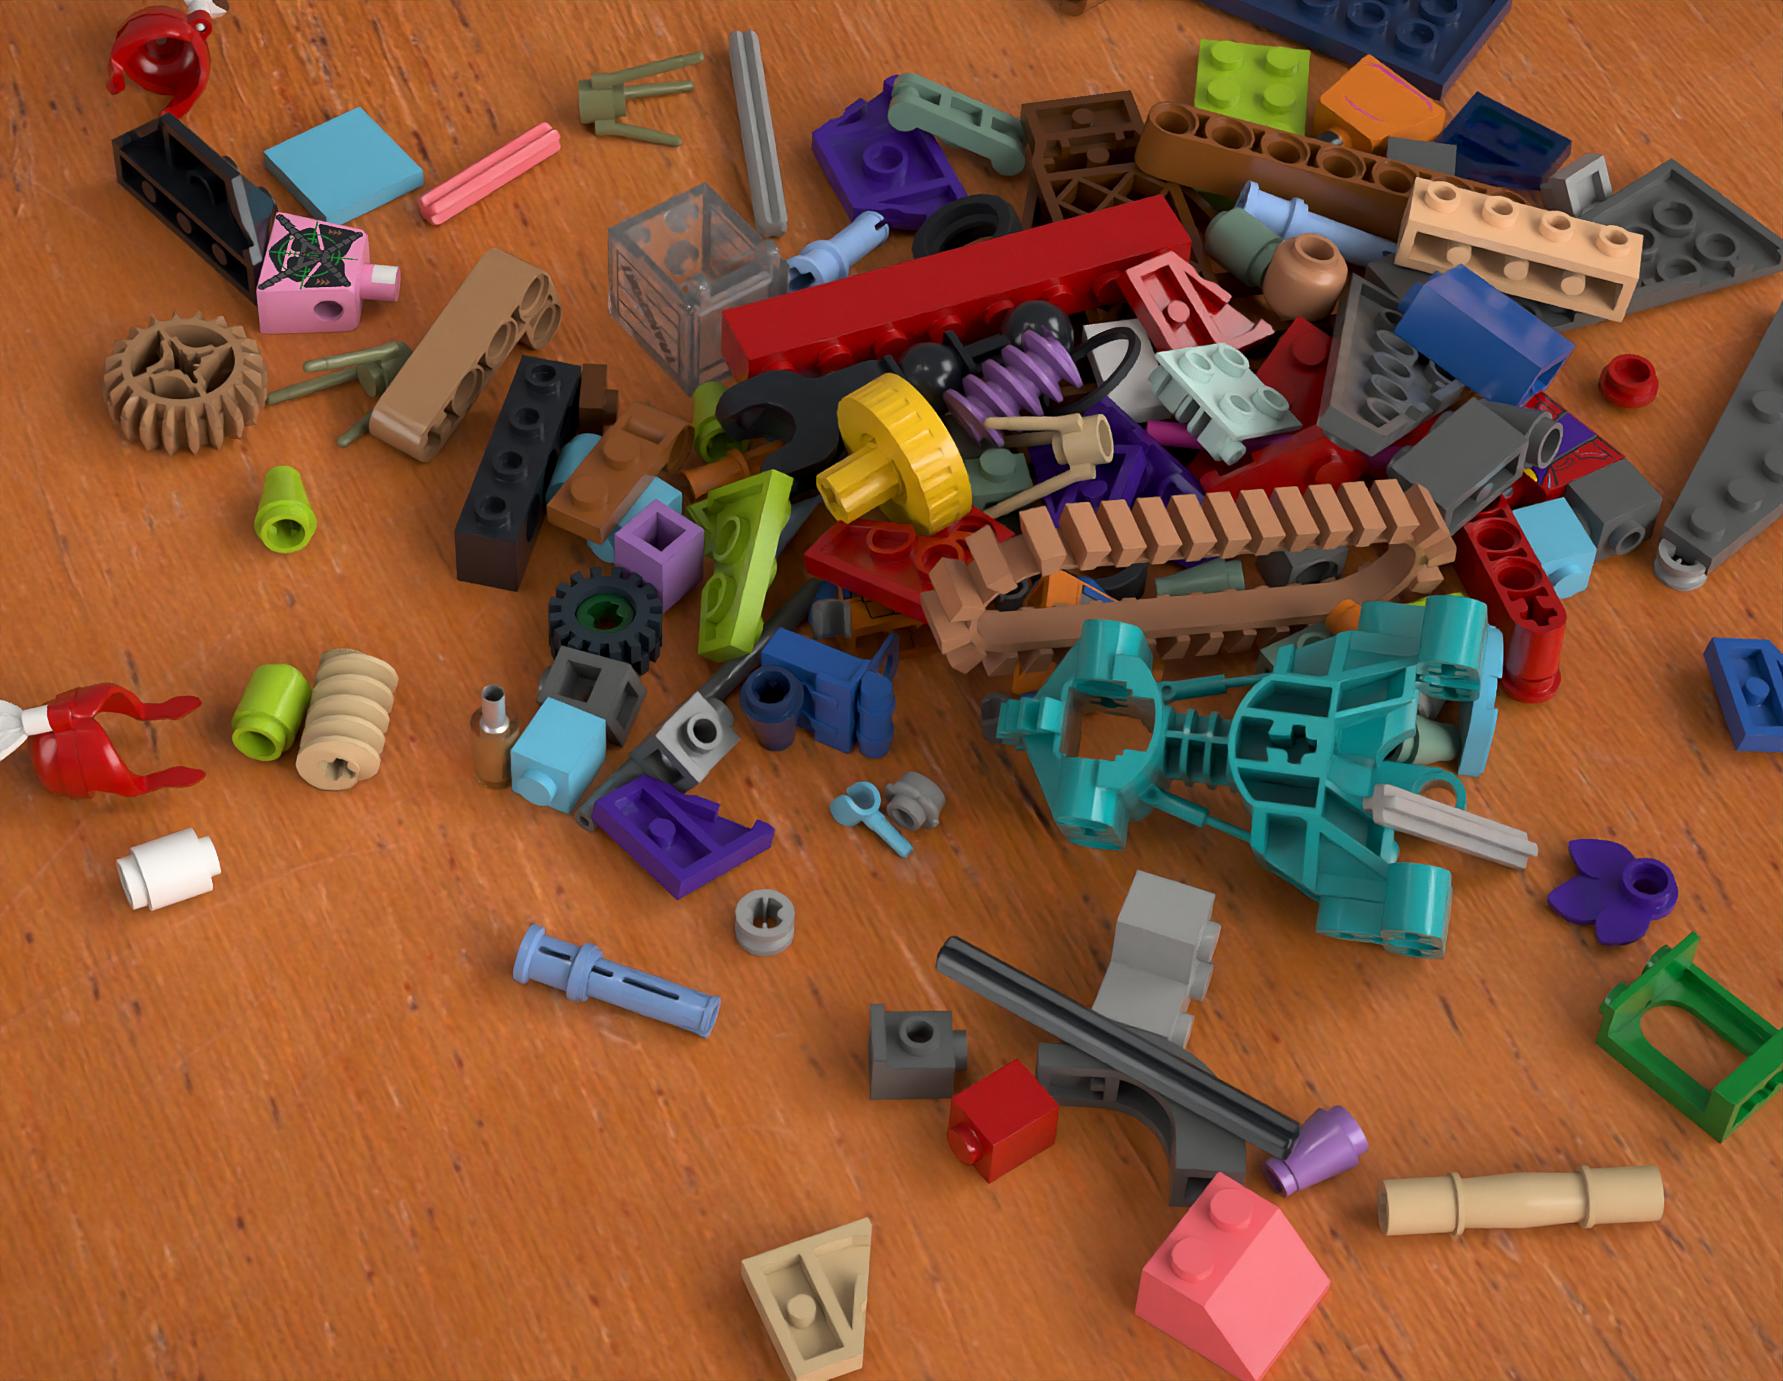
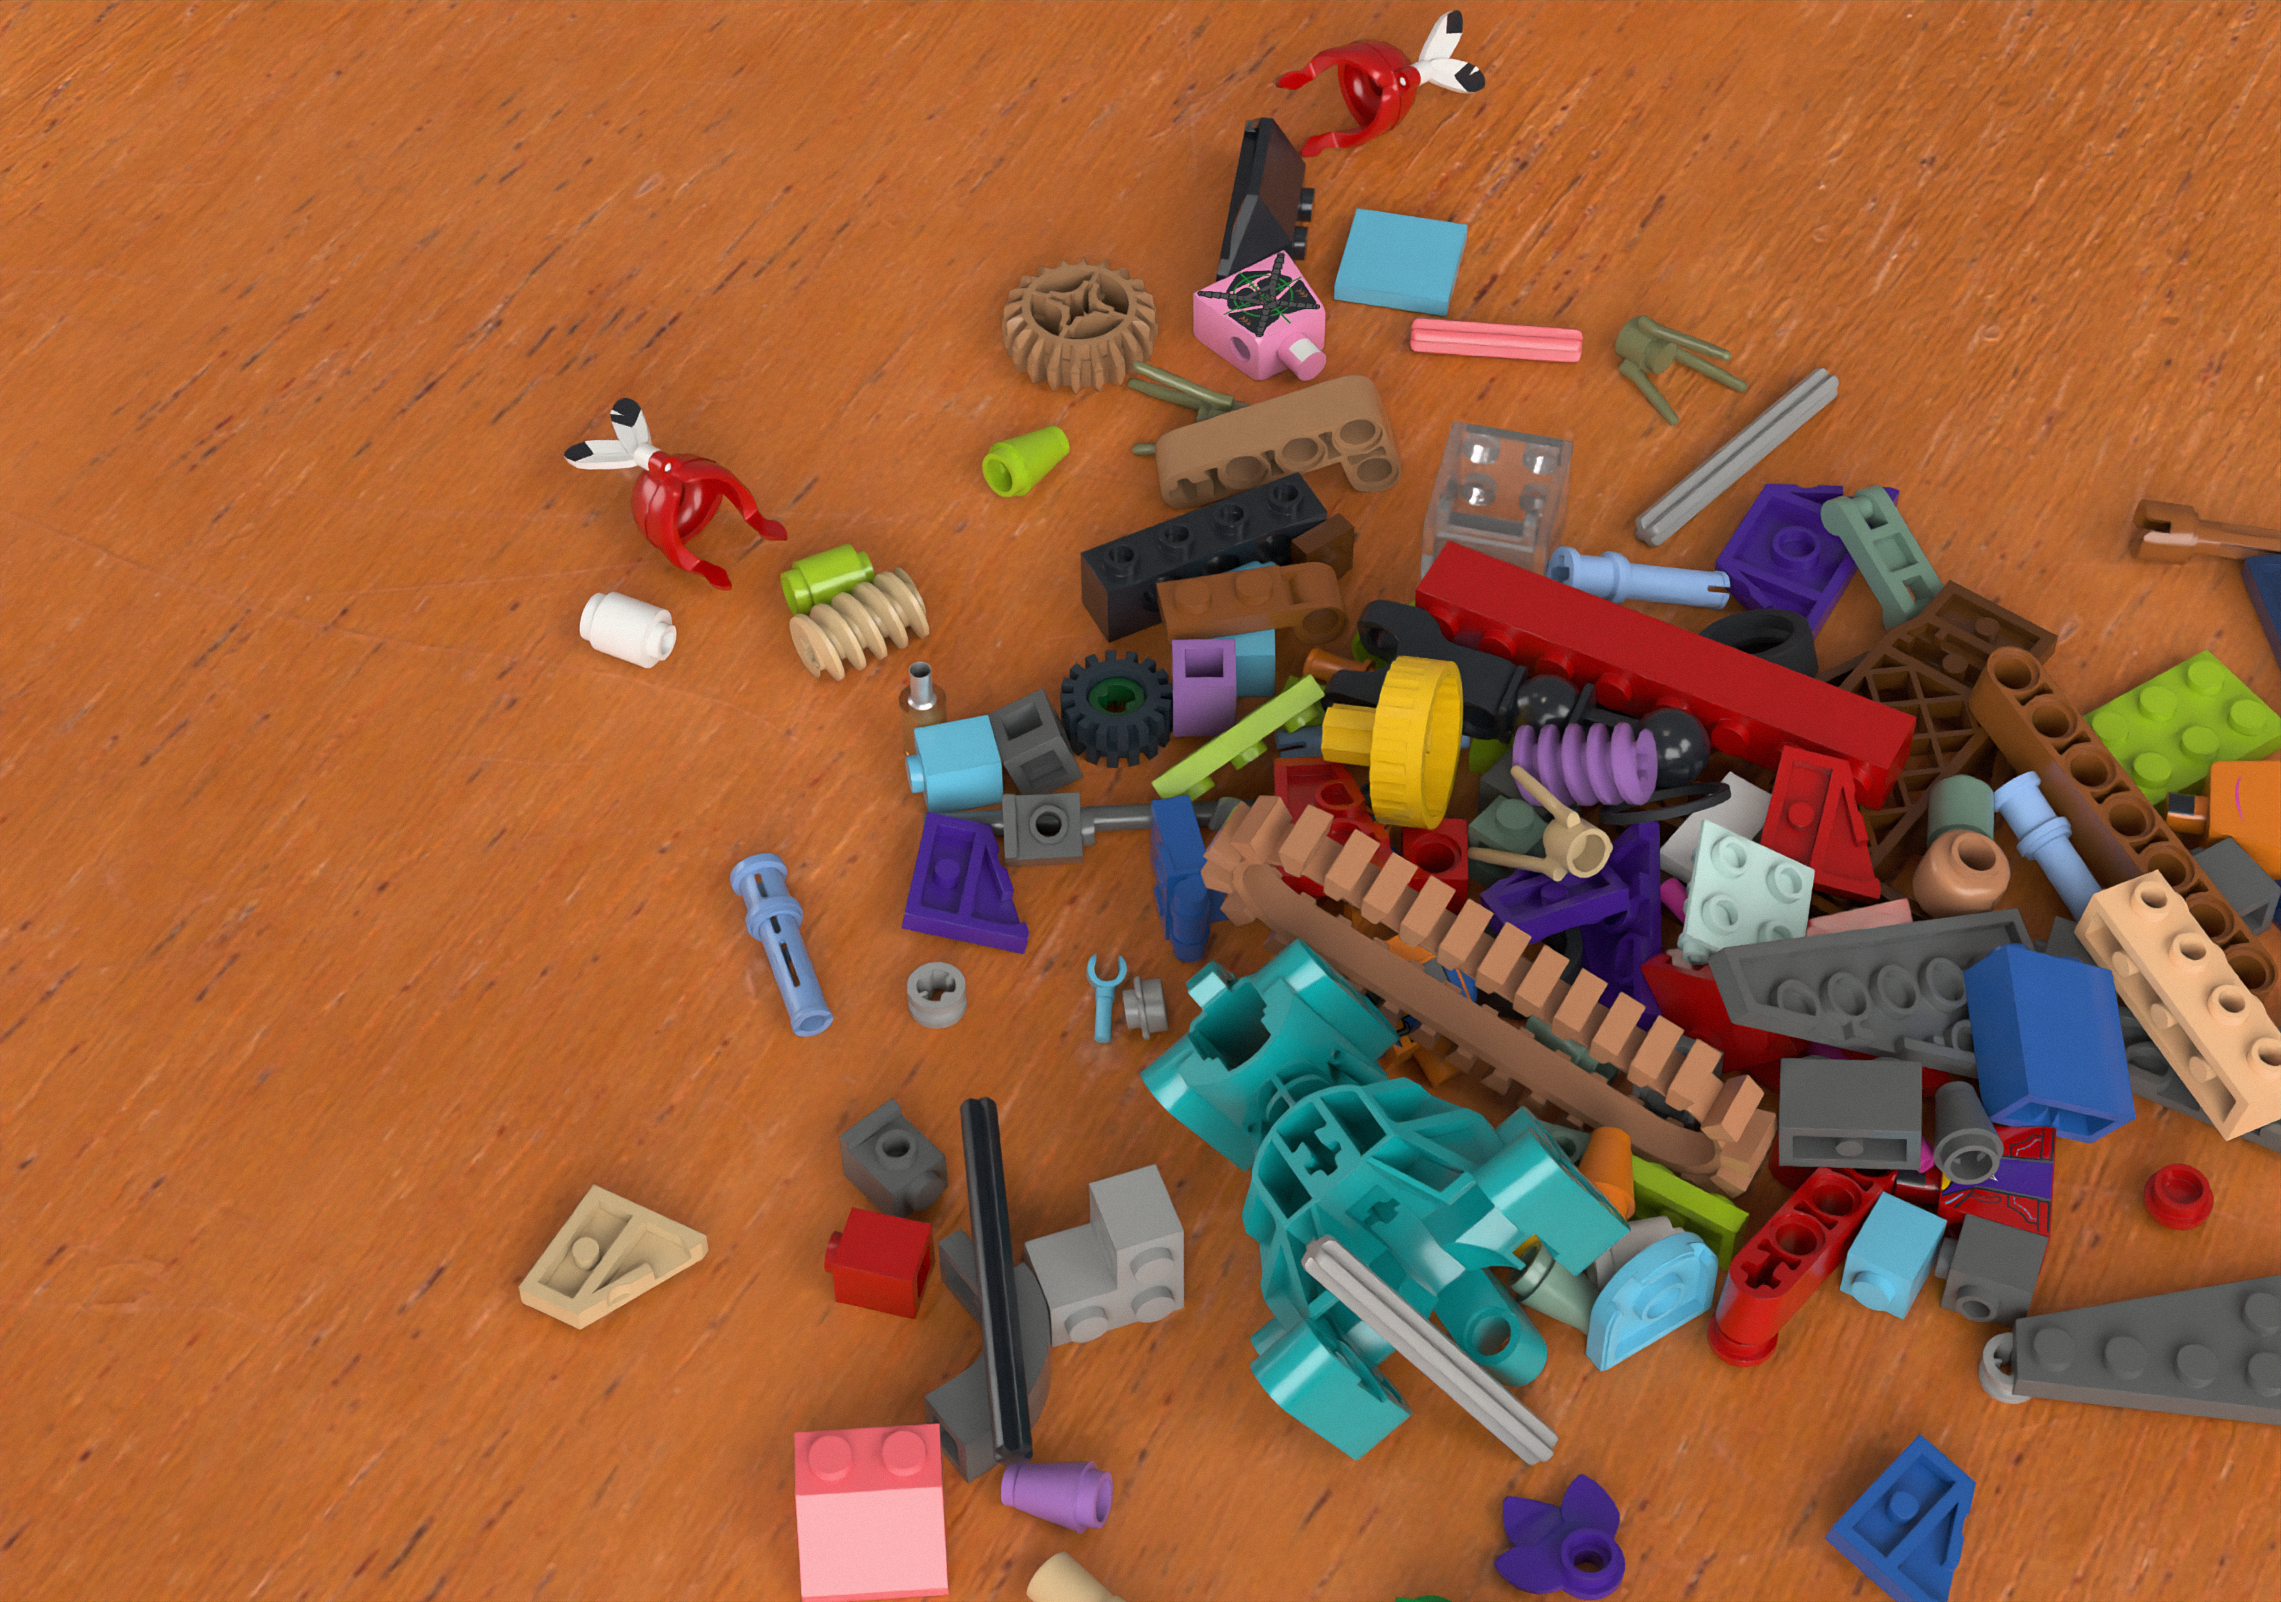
camera: 55 degrees right, 0 degrees up
(772, 705) = (1127, 851): dark blue cone -> none

